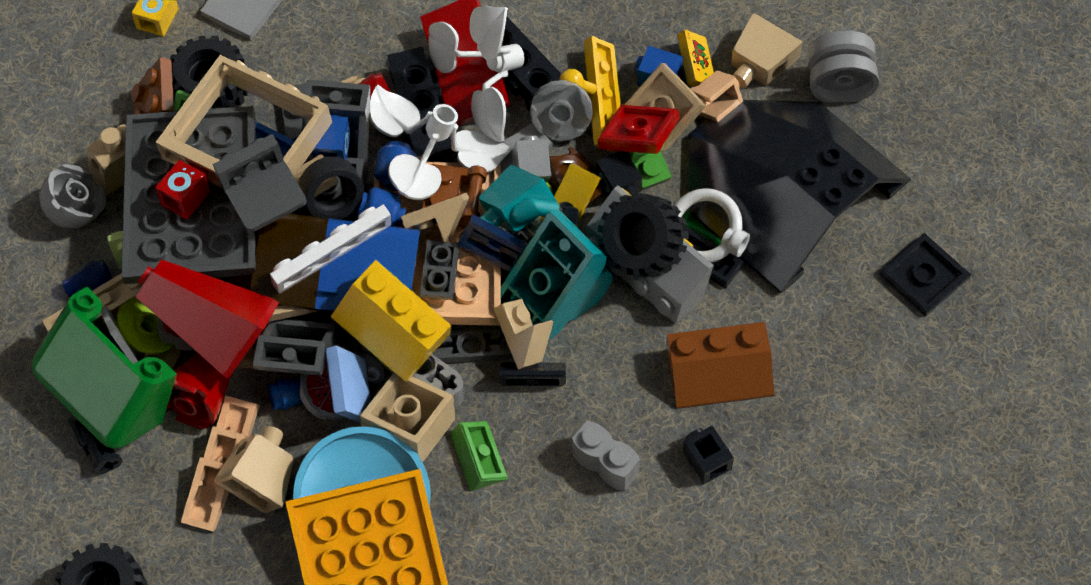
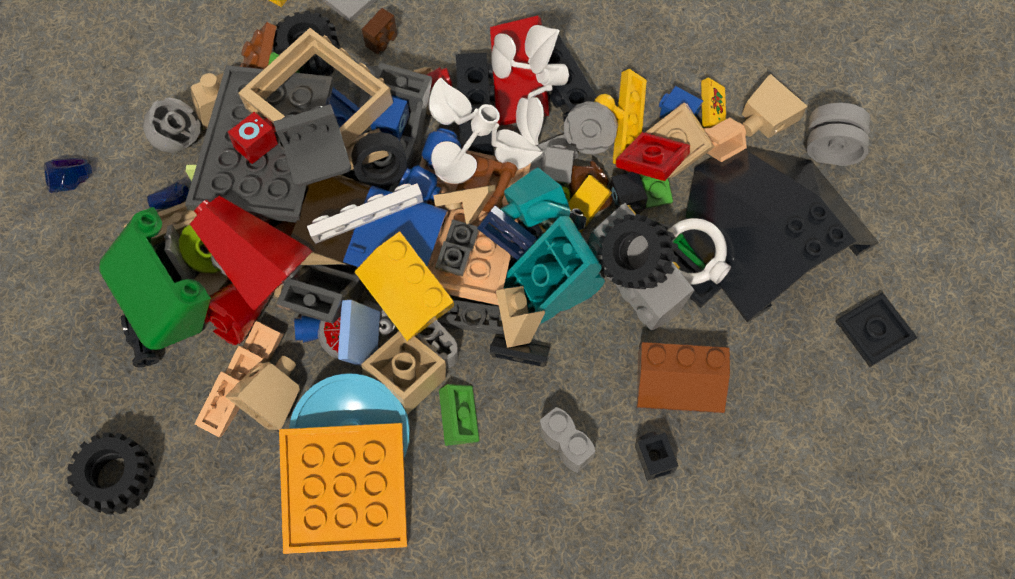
camera: 10 degrees right, 5 degrees up
(290, 44) = (379, 31): none -> reddish brown piece

